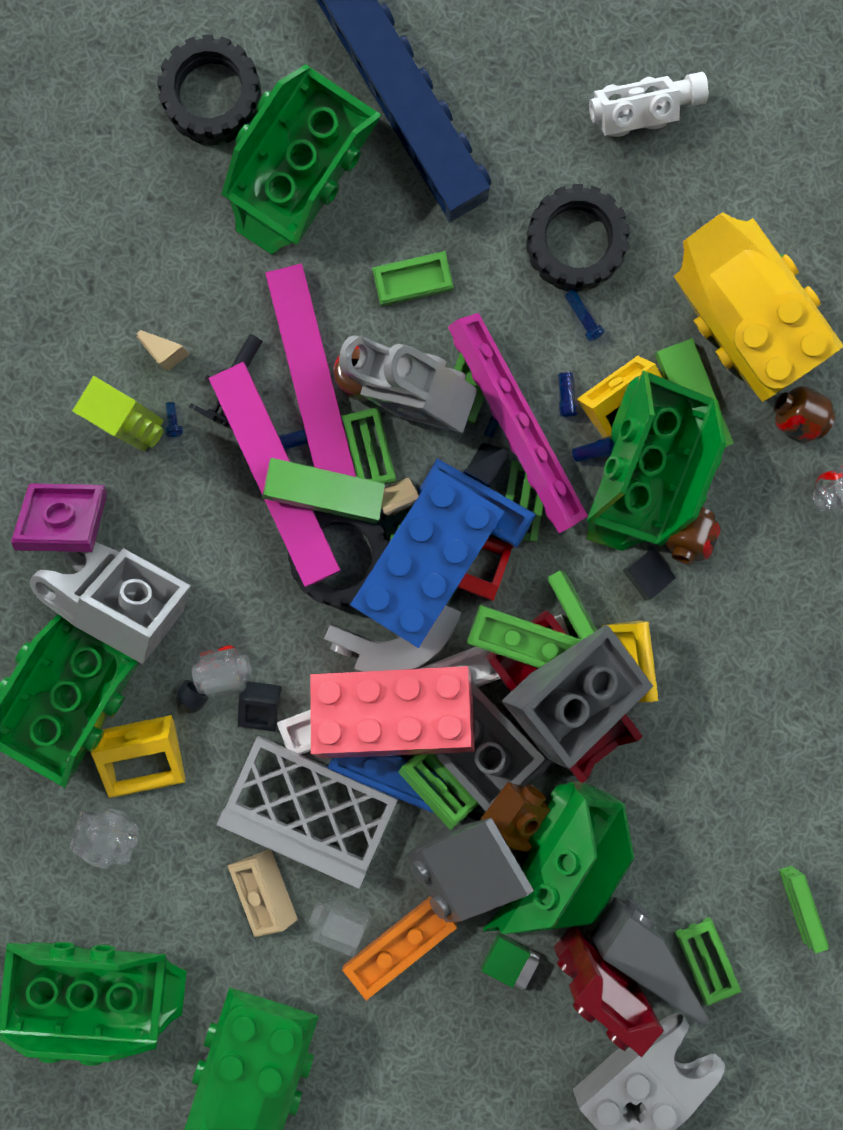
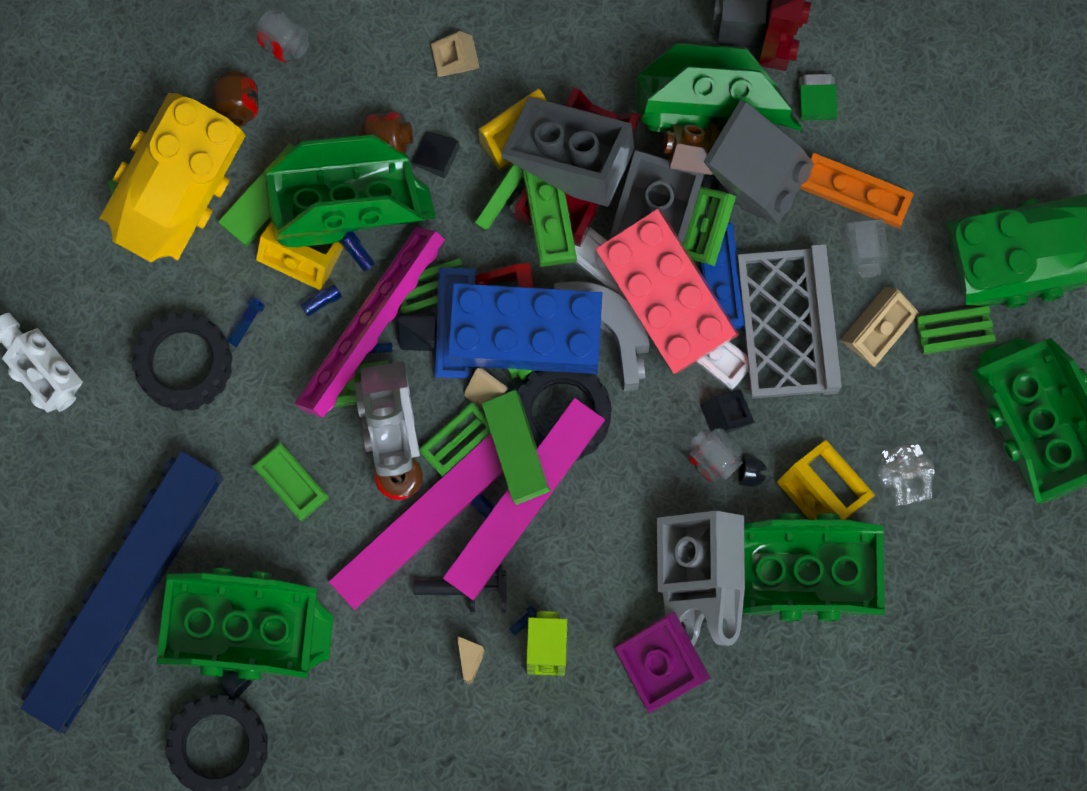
camera: 115 degrees left, 10 degrees down
(207, 992) = (986, 325): none -> bright green tile
(738, 644) = (454, 54): none -> tan slope

